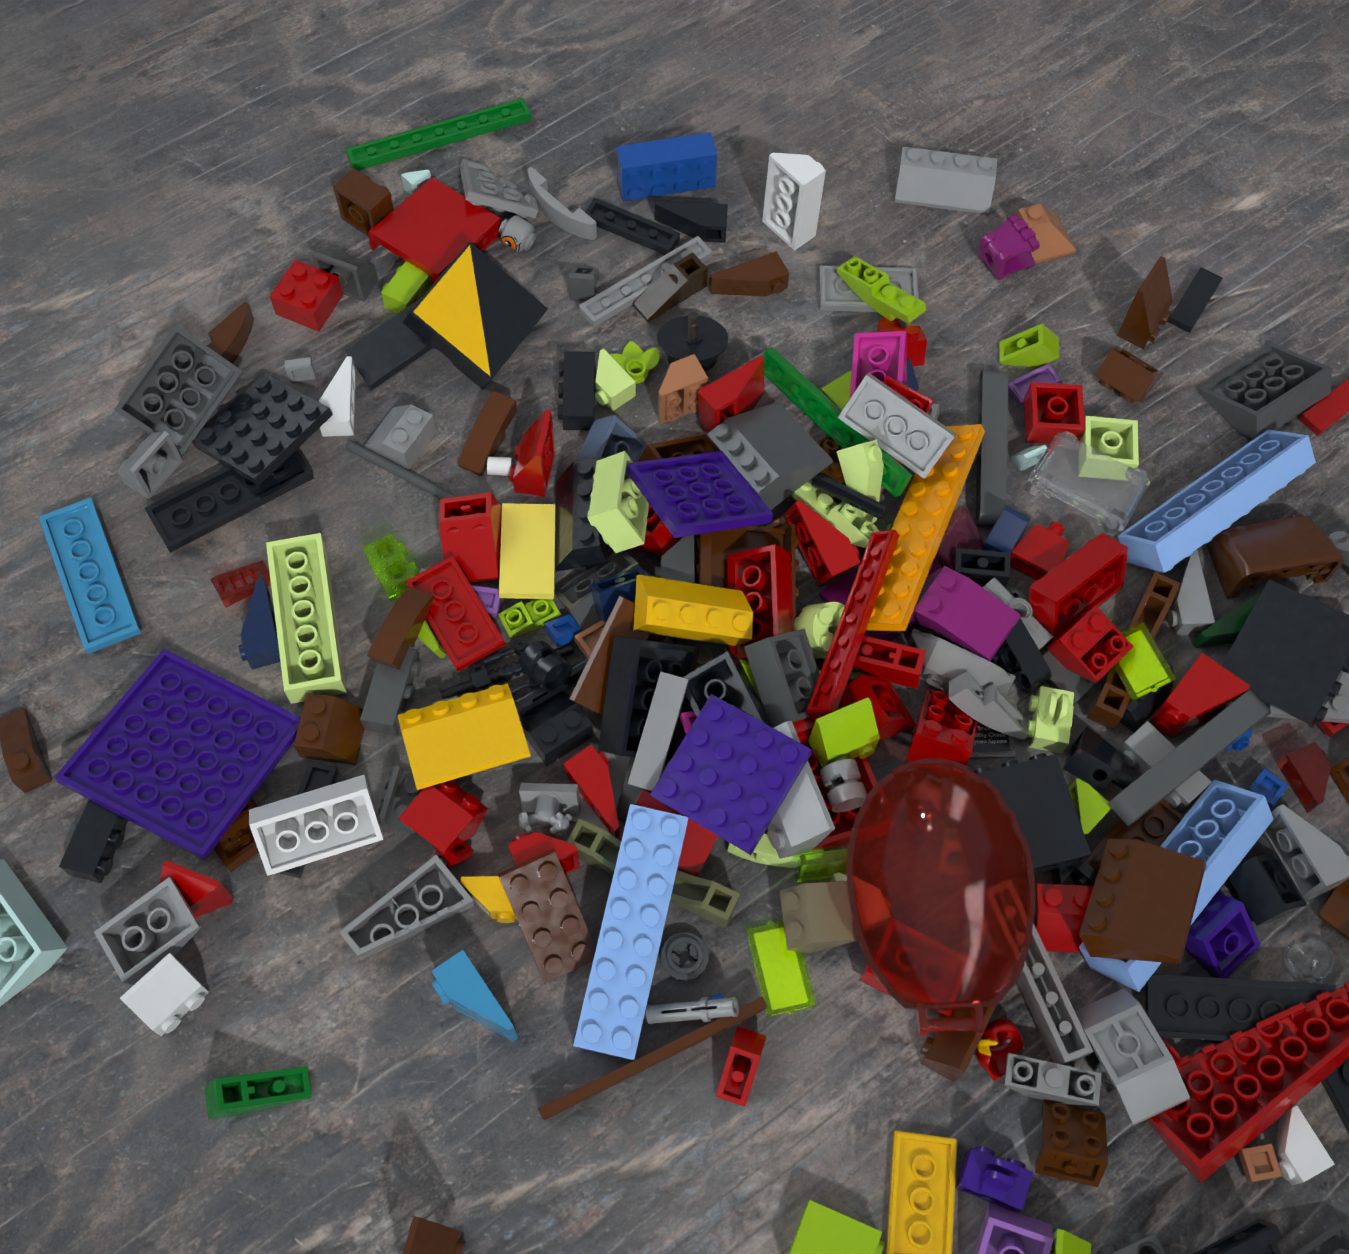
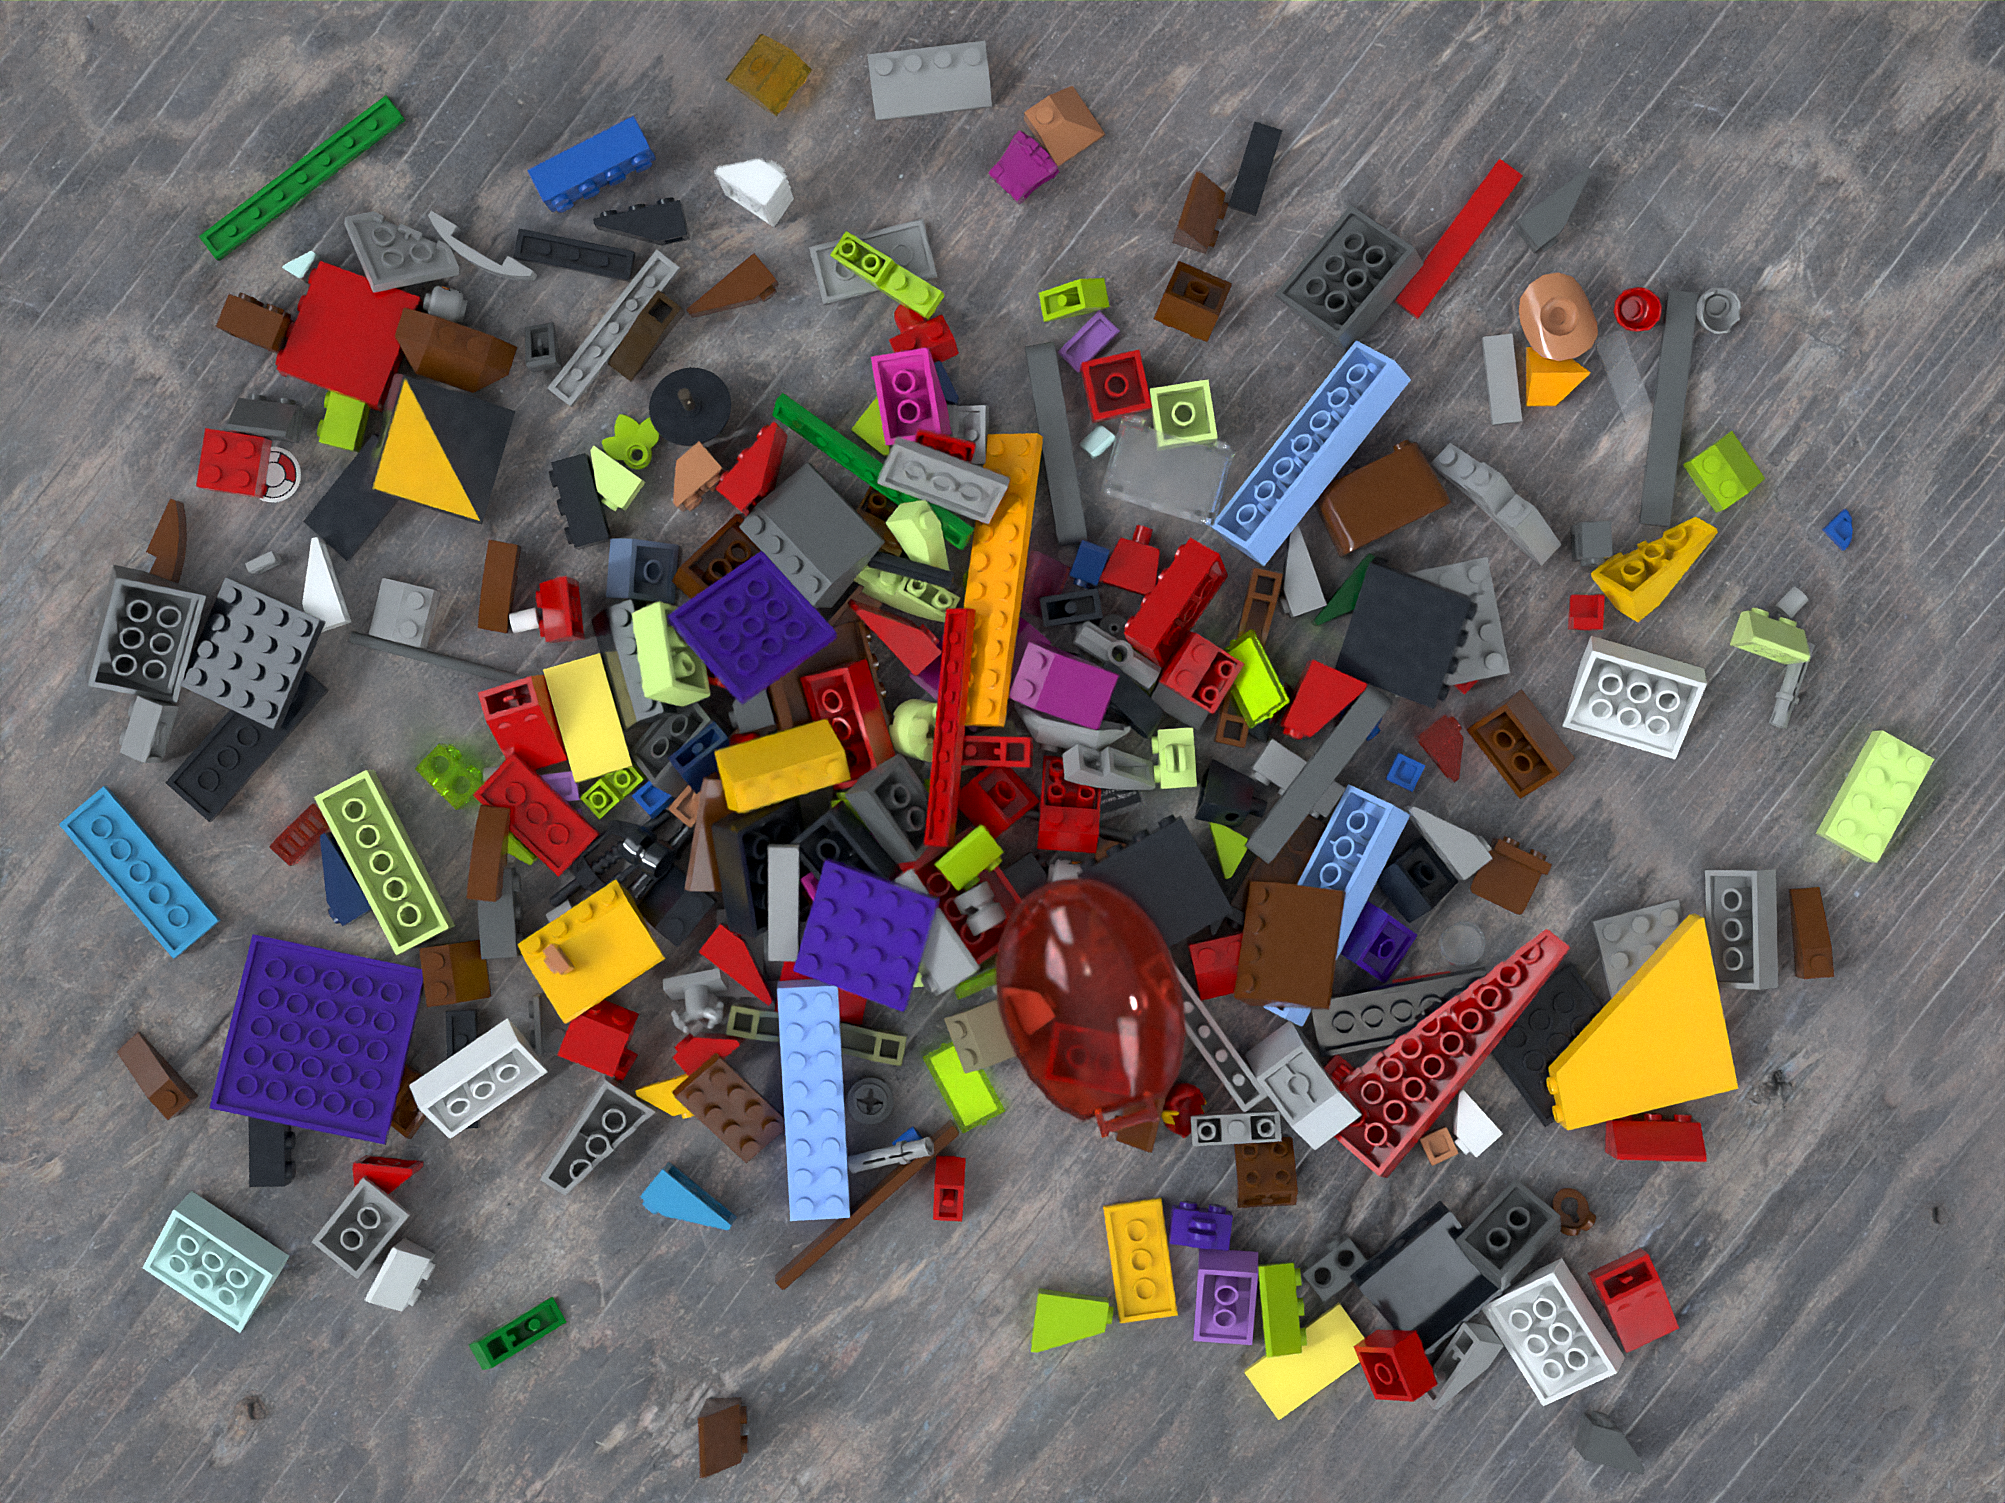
camera: 10 degrees left, 25 degrees up
(341, 320) = (282, 475): none -> sticker
(430, 725) = (557, 960): none -> nougat plate
(518, 255) = (452, 351): none -> reddish brown wedge
(826, 145) = (769, 74): none -> clear yellow slope

